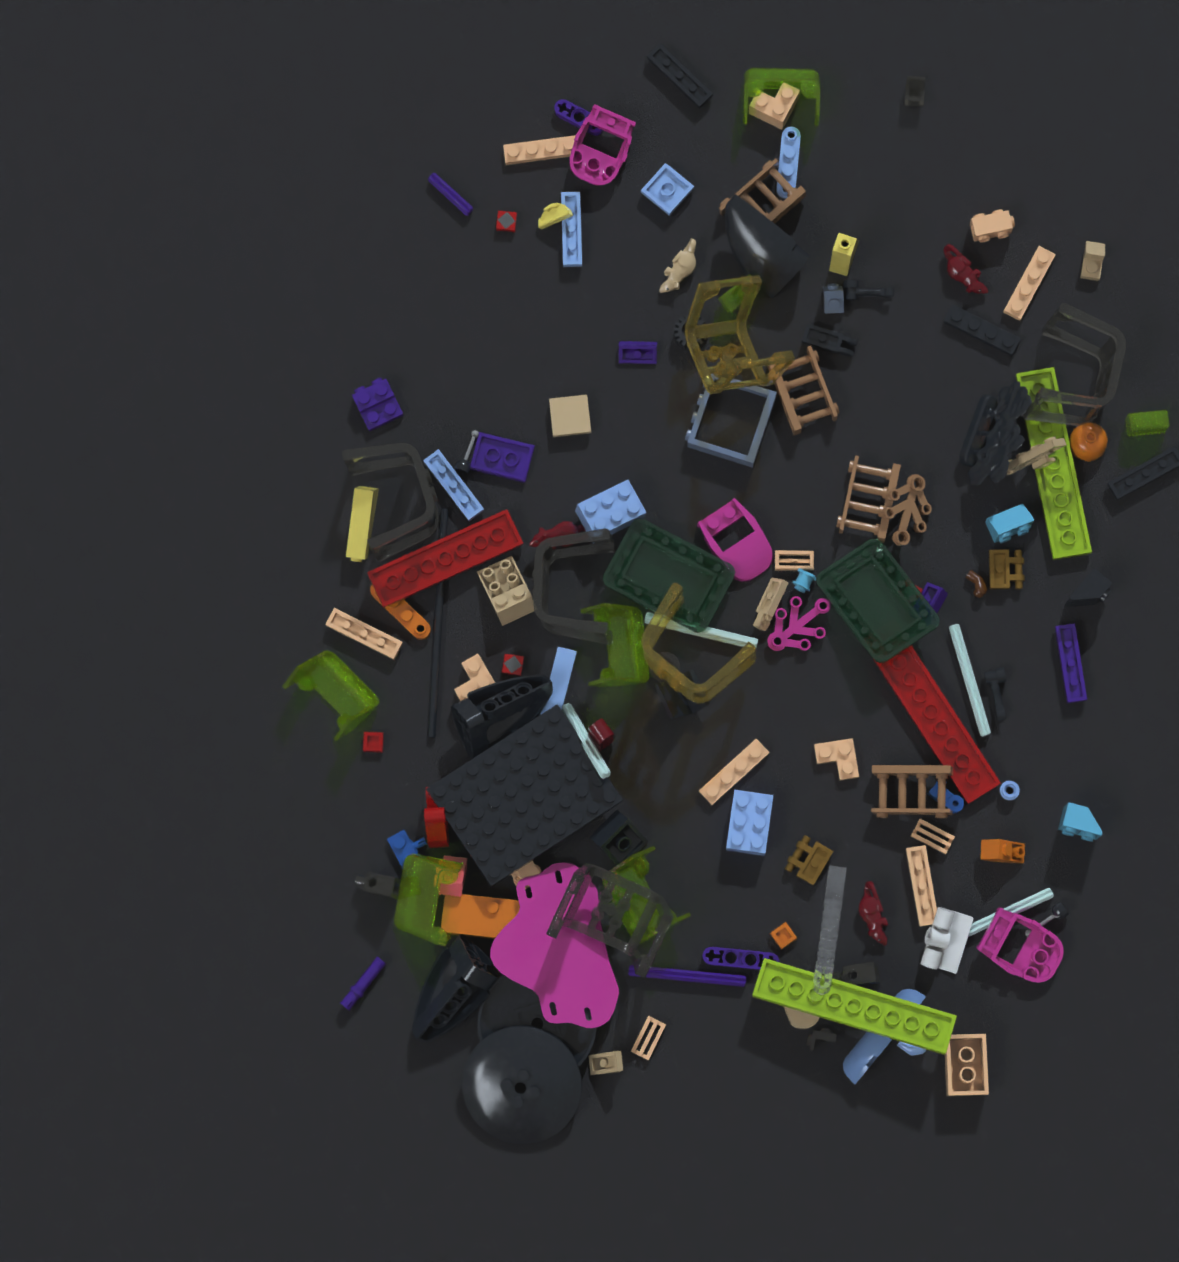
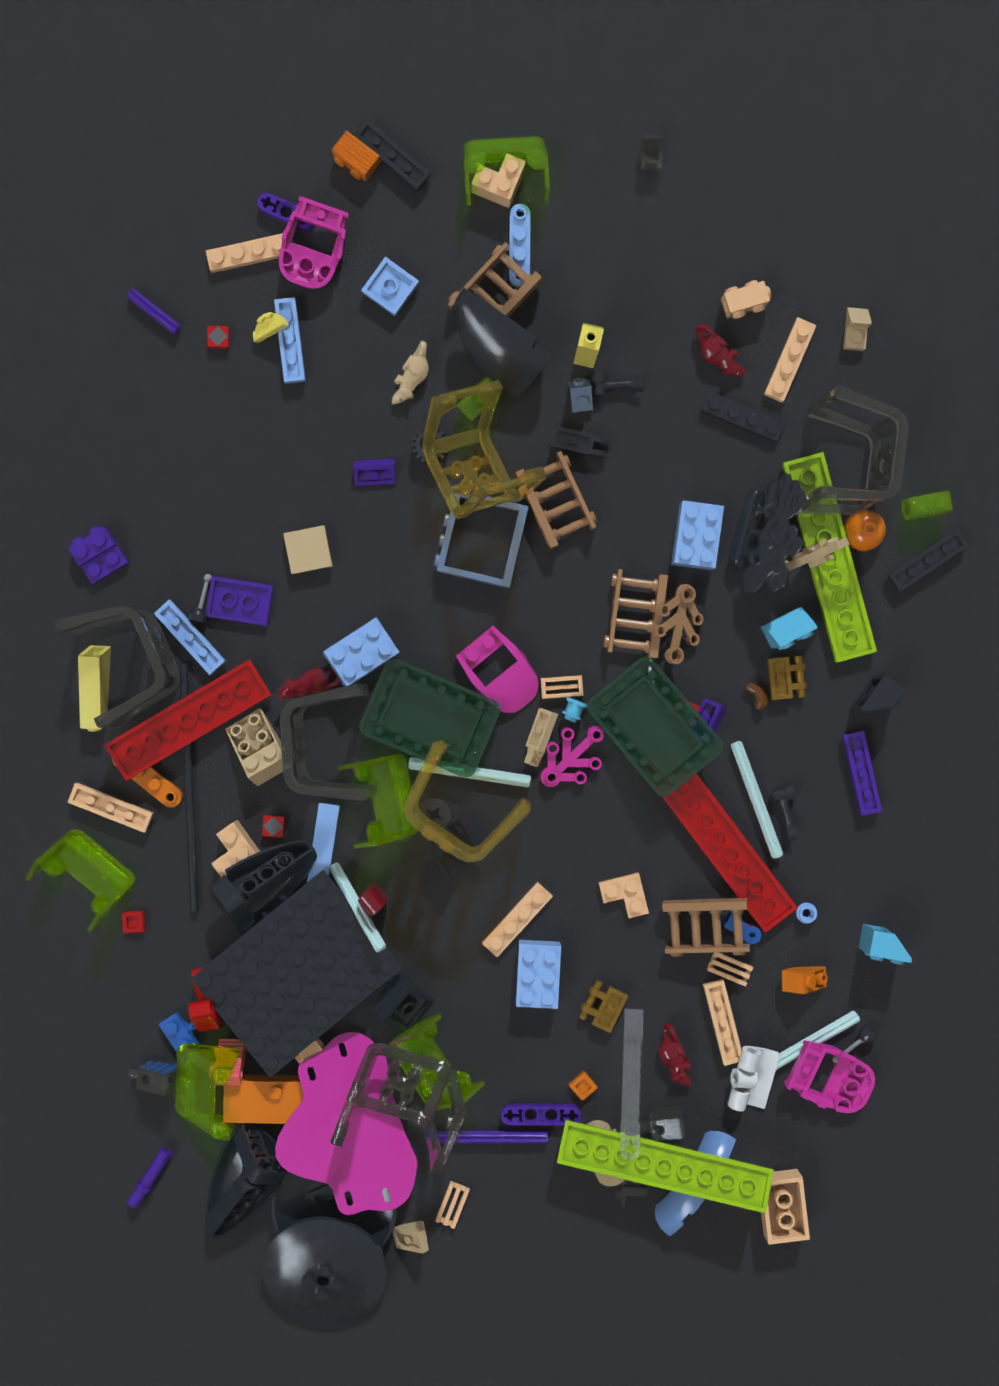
camera: 10 degrees left, 10 degrees up
(646, 74) = (355, 156): none -> orange brick
(931, 432) = (697, 535): none -> light blue brick

